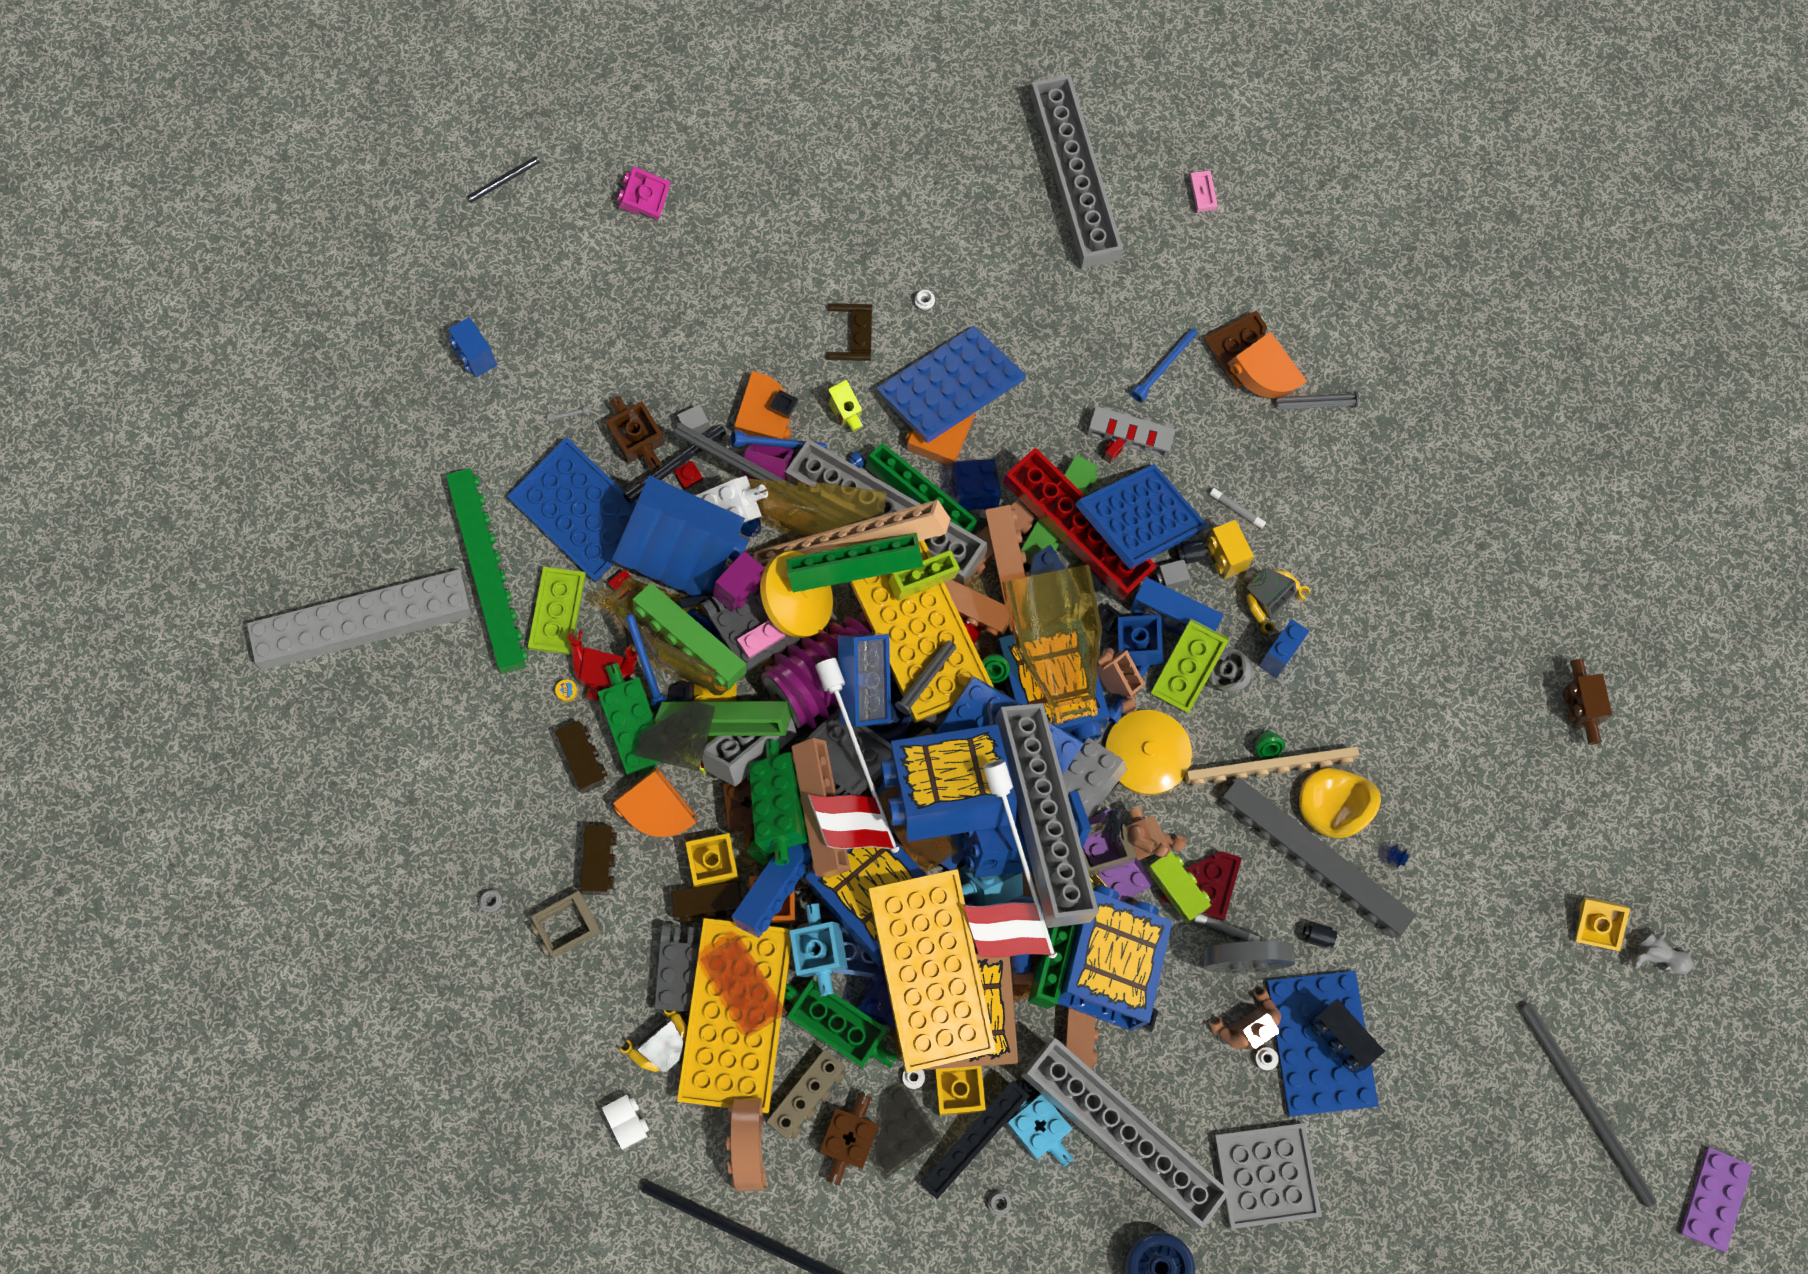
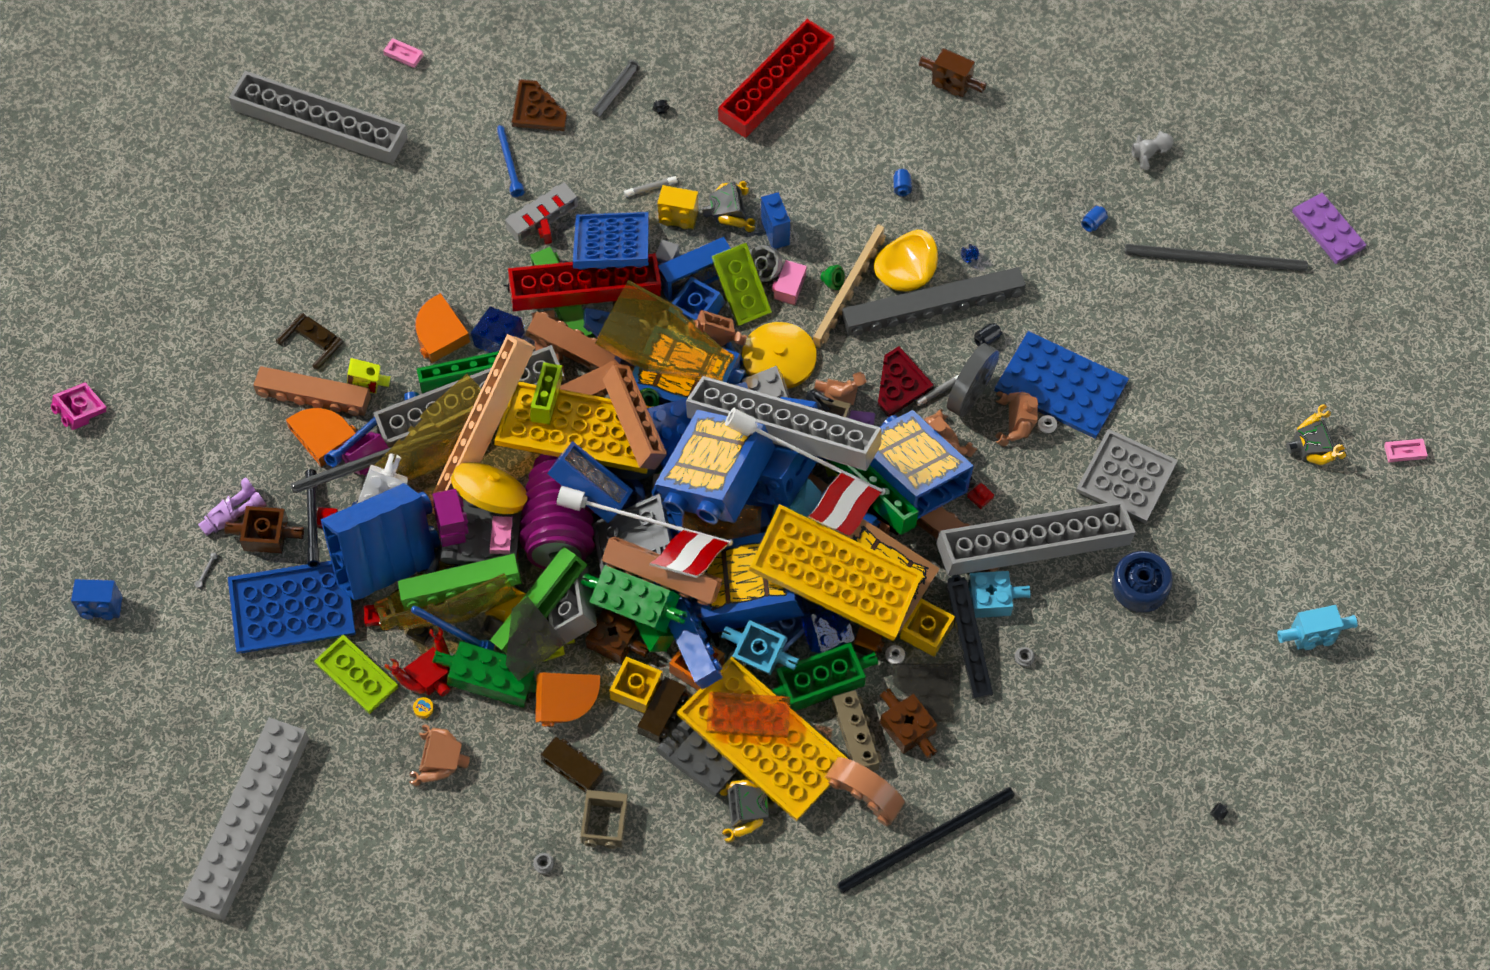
camera: 50 degrees left, 10 degrees down
(486, 571) = (282, 703): green brick -> none
(527, 738) = (439, 756): none -> nougat torso
(581, 756) = (484, 727): dark brown brick -> none
(625, 1121) = (783, 870): white brick -> none
(631, 388) = (225, 510): none -> lavender piece
(694, 419) = (284, 489): light grey brick -> none
(784, 404) = (331, 413): black plate -> none
(800, 371) = (312, 391): none -> nougat brick
(854, 562) = (504, 424): green brick -> none
(924, 294) = (328, 272): white plate -> none
(925, 678) = (621, 442): dark grey axle -> none
(950, 384) = (409, 298): blue plate -> none
(958, 671) = (634, 417): none -> nougat brick
(1141, 1045) = (980, 495): none -> red tile
(1172, 969) = (937, 422): none -> nougat torso
(1179, 887) = (891, 394): lime brick -> none
(1192, 552) = (659, 231): black brick -> none
(1232, 707) = (789, 282): none -> bright pink brick
(1267, 369) = (568, 99): orange brick -> none
(1330, 456) = (660, 106): none -> black plate
(1346, 1037) = (1070, 359): black brick -> none
(1426, 737) = (902, 182): none -> blue brick
(1446, 538) = (776, 78): none -> red brick
(1534, 952) = (1094, 218): none -> blue brick
(1602, 923) = (1105, 167): yellow slope -> none

